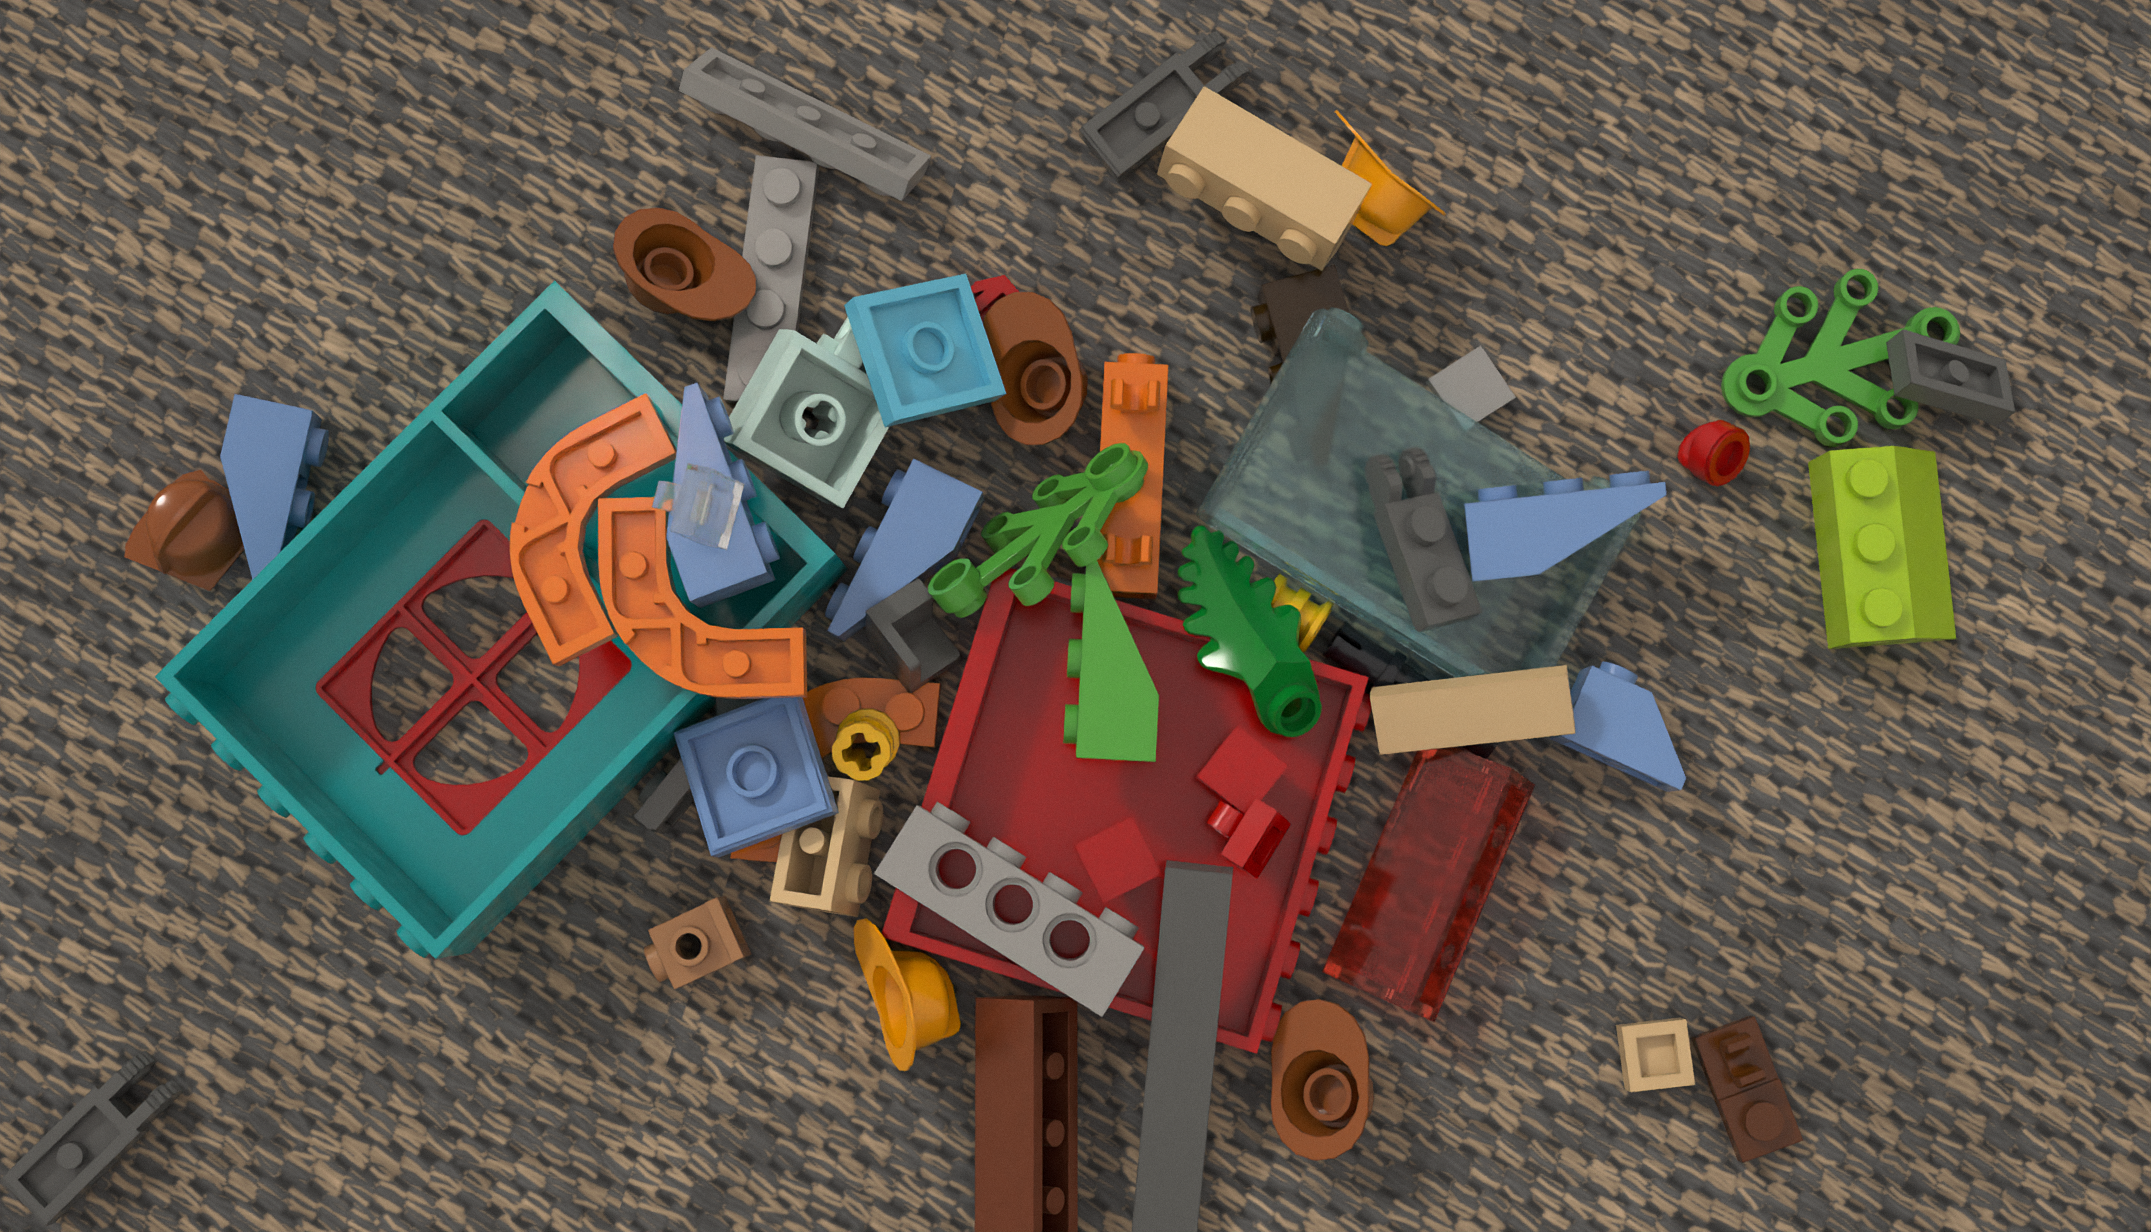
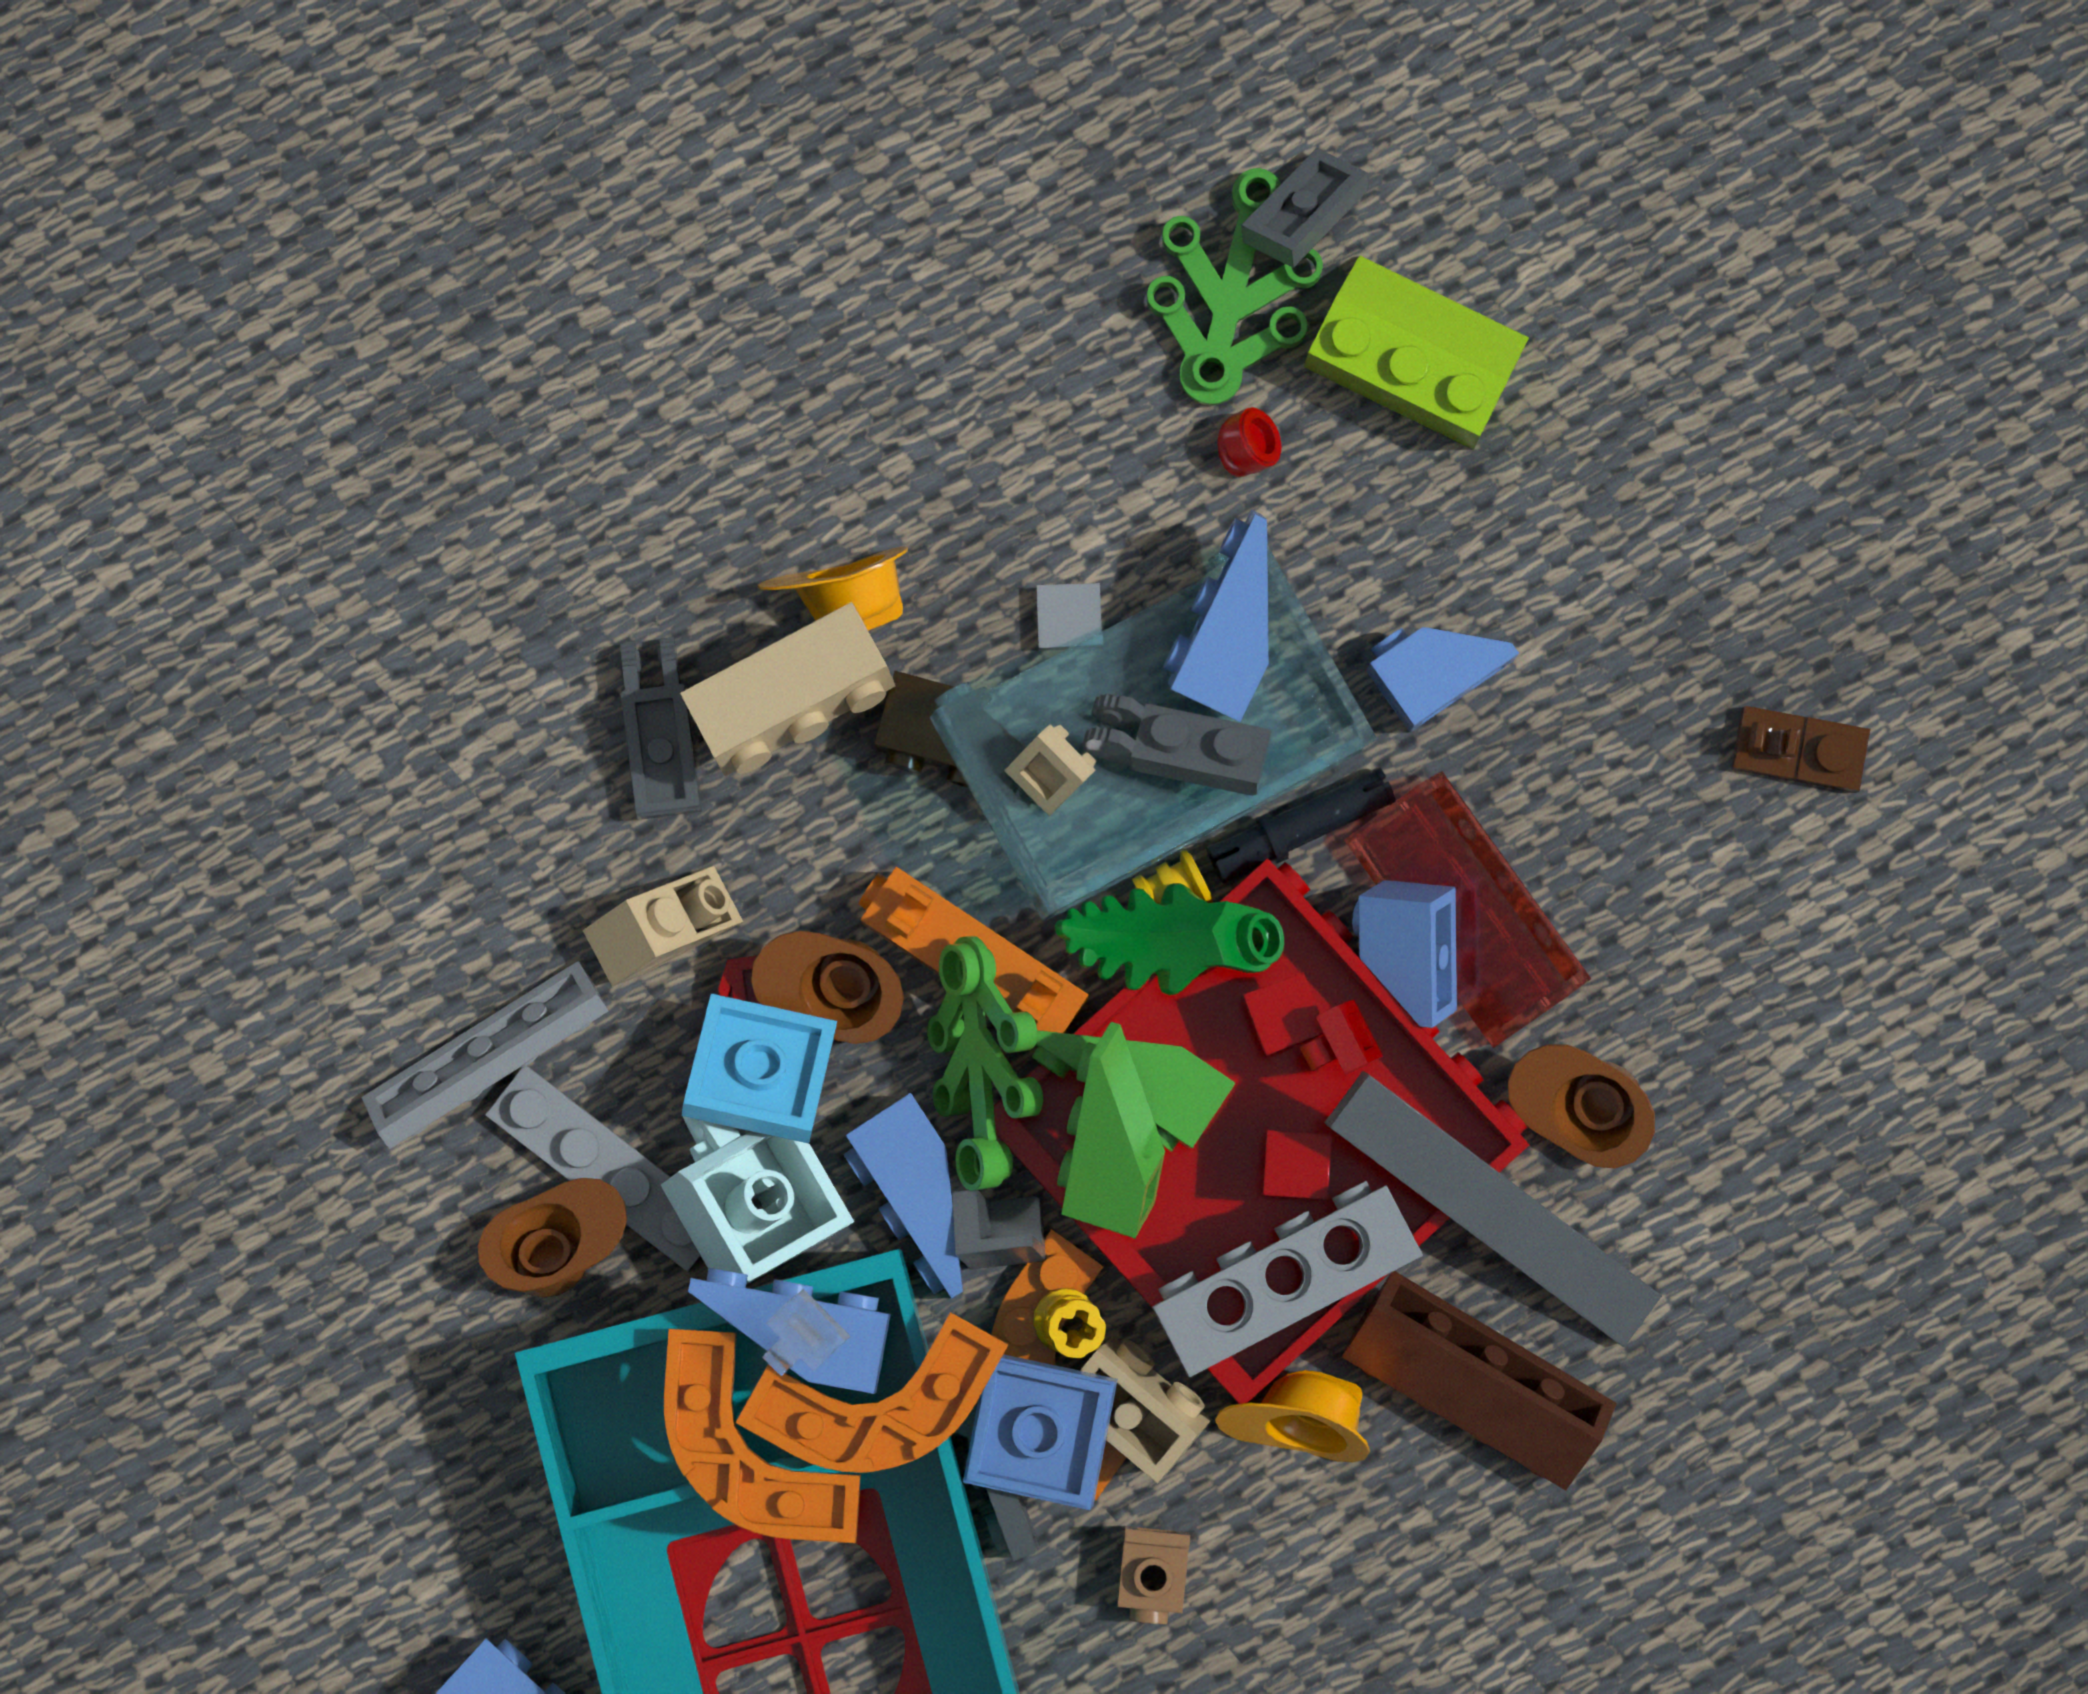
camera: 60 degrees left, 0 degrees up
(1001, 203) = (661, 925): none -> tan slope
(1038, 689) = (1117, 1147): none -> bright green slope
(1332, 441) = (1051, 769): none -> tan tile
(1368, 847) = (1411, 945): none -> medium blue slope
(1473, 710) = (1348, 787): tan tile -> none
(1655, 1054) = (1727, 808): tan plate -> none

